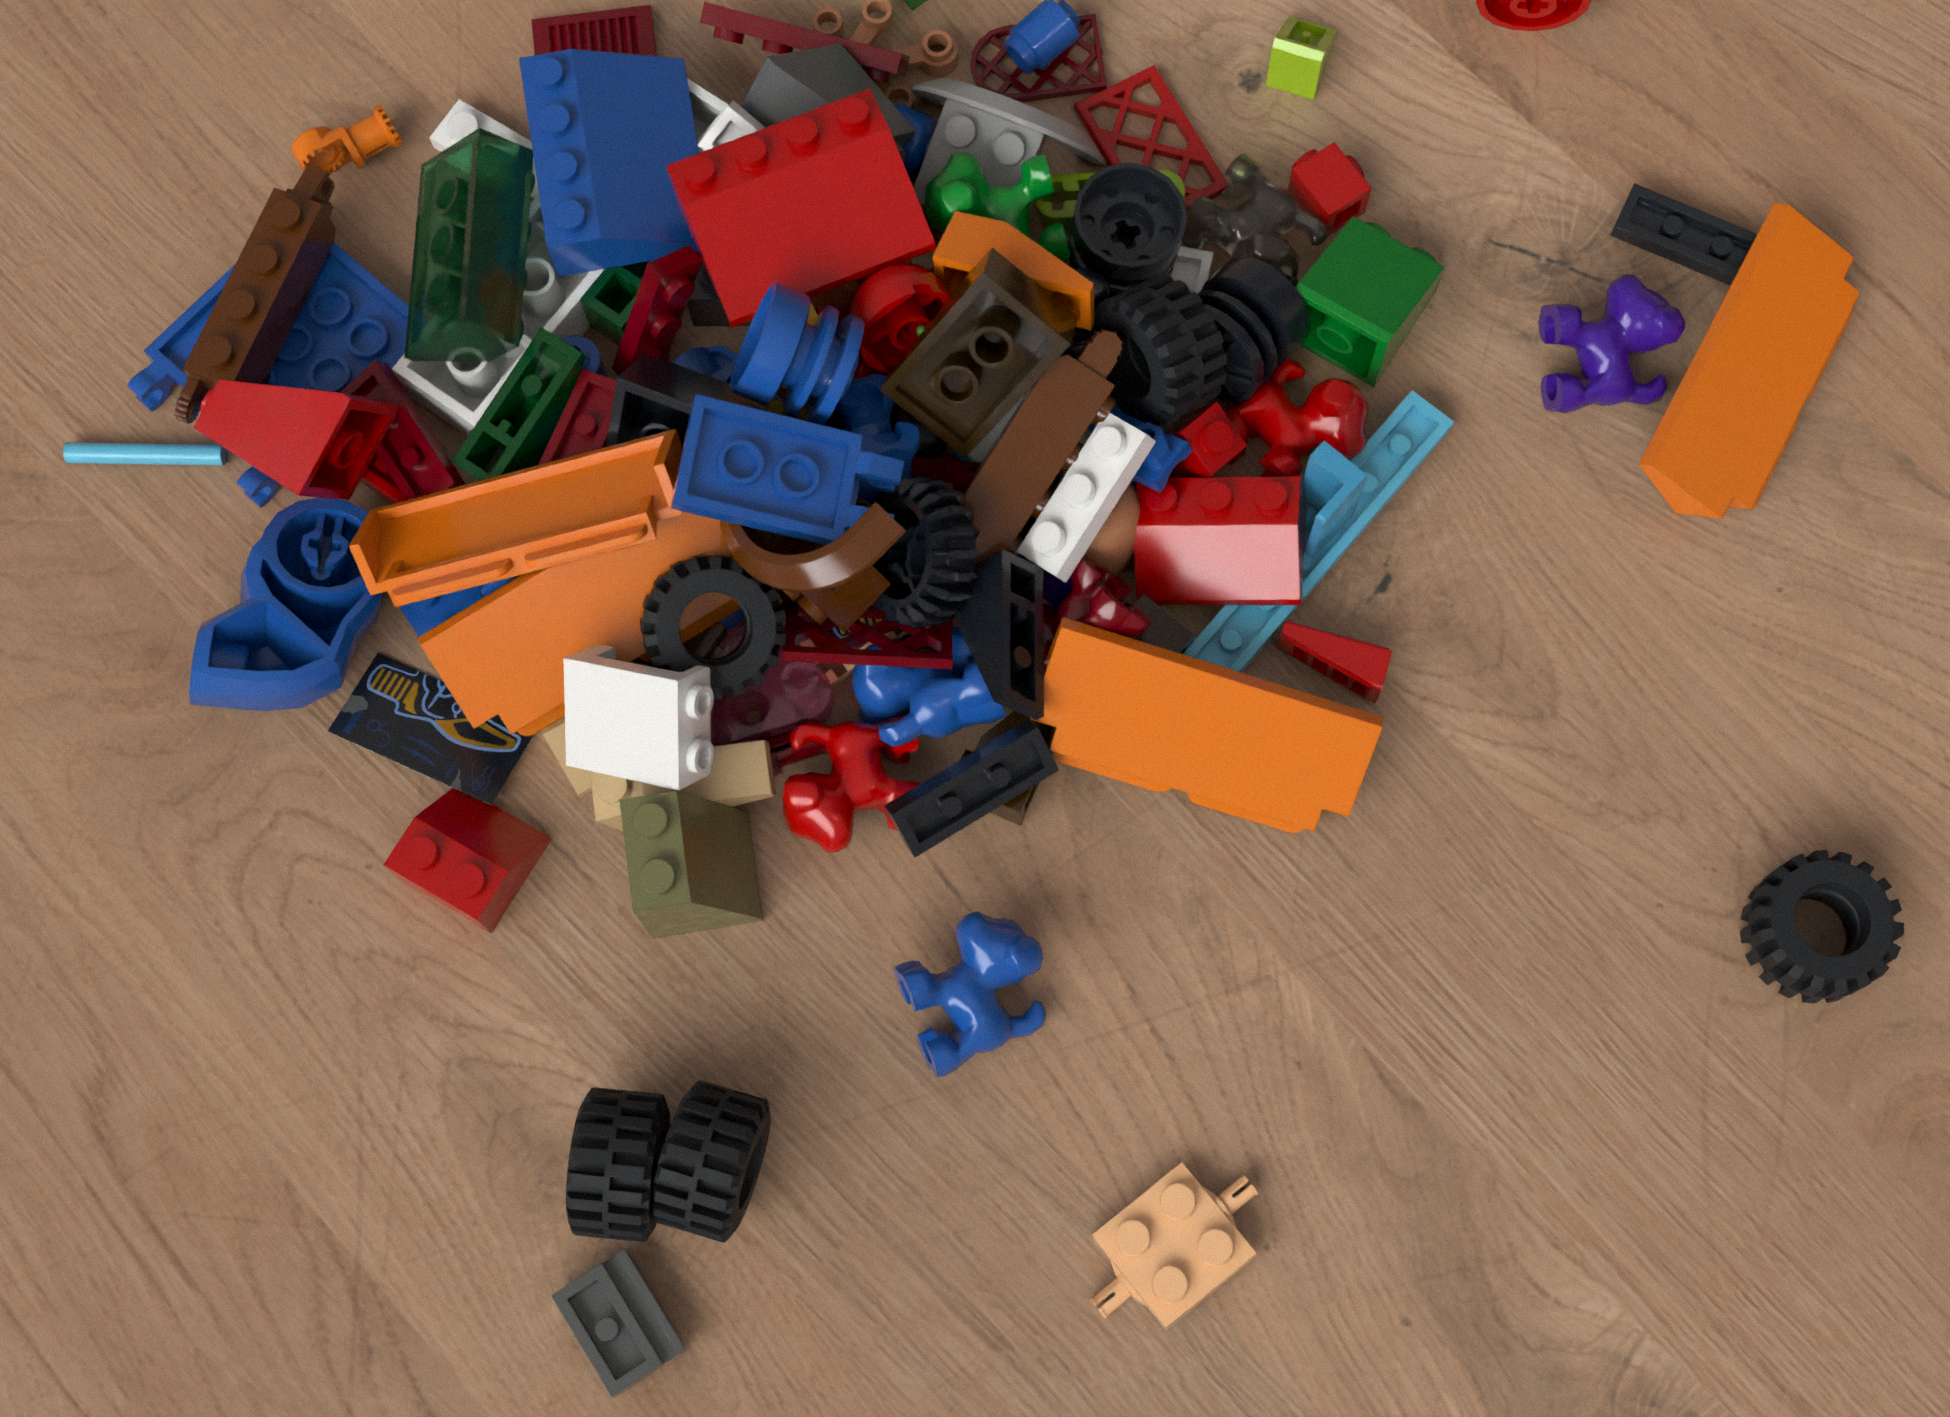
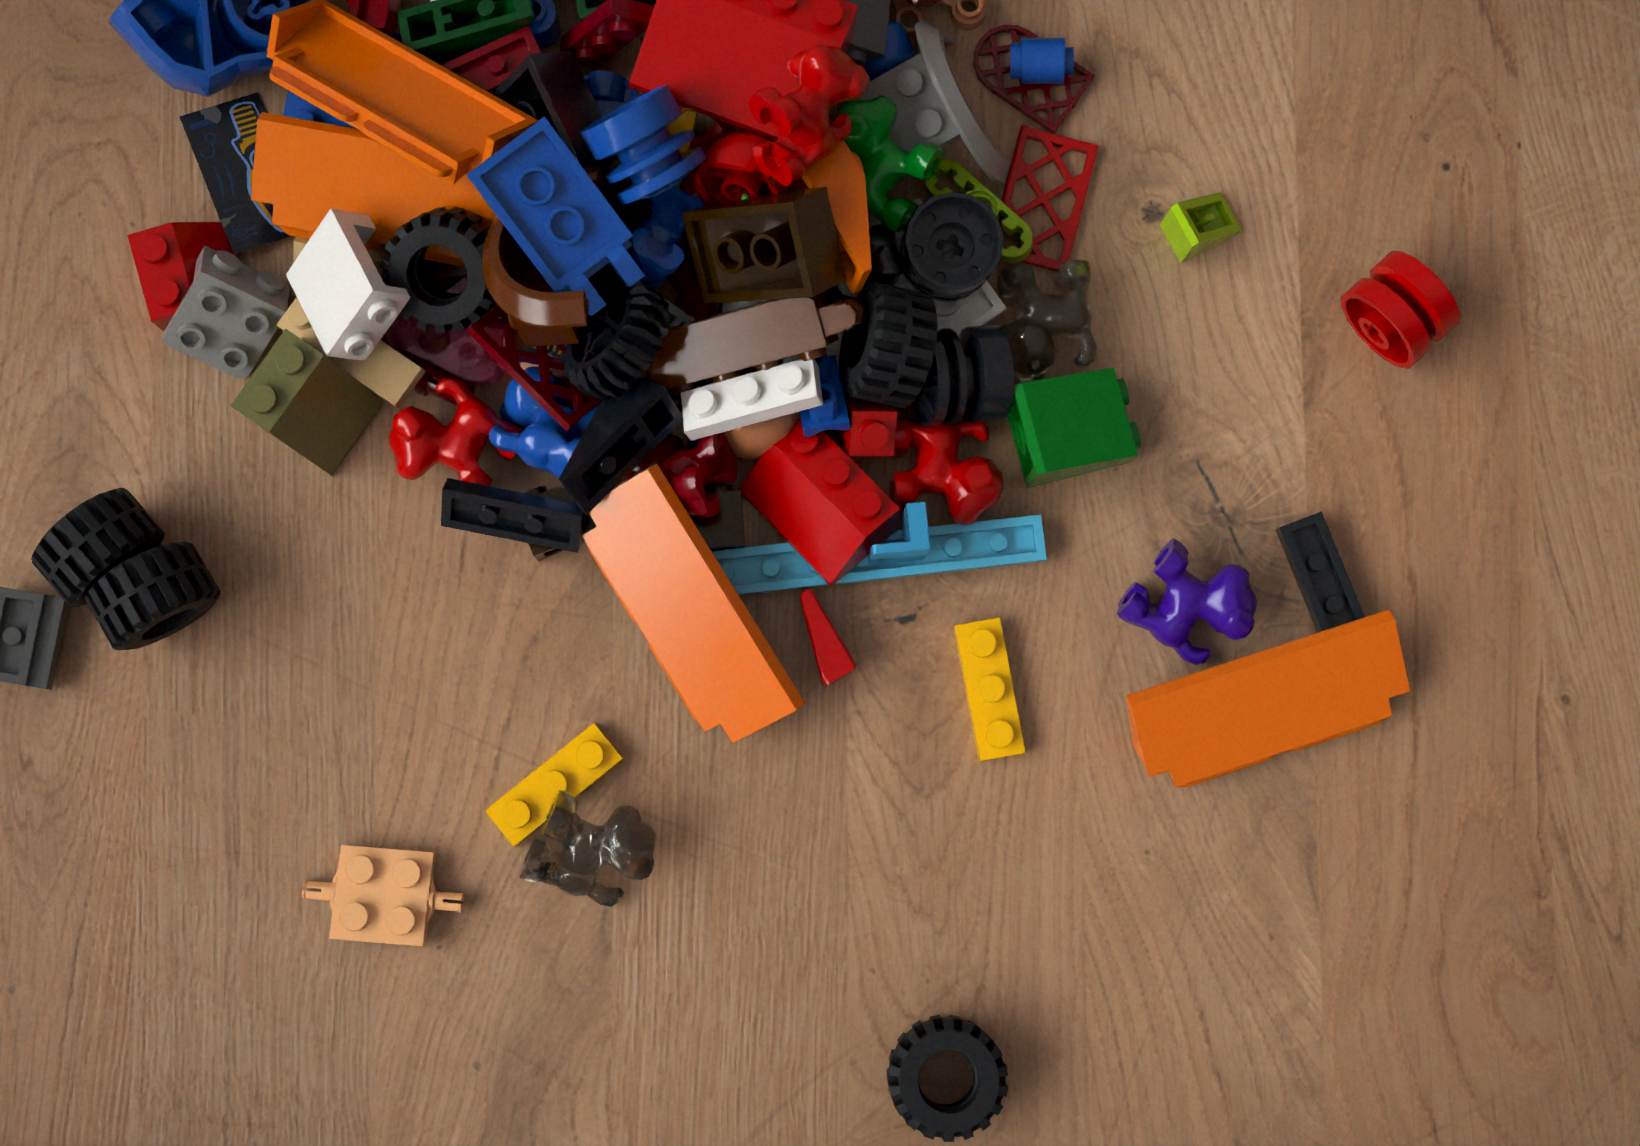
camera: 30 degrees right, 10 degrees up
(540, 856) = (227, 313): none -> light grey bracket
(931, 215) = (805, 135): none -> red animal
(991, 956) = (434, 627): blue animal -> none
(1227, 1003) = (570, 770): none -> yellow plate
(1330, 186) = (1124, 333): red brick -> none
(1342, 989) = (621, 842): none -> clear smoke animal
(1514, 575) = (989, 689): none -> yellow plate

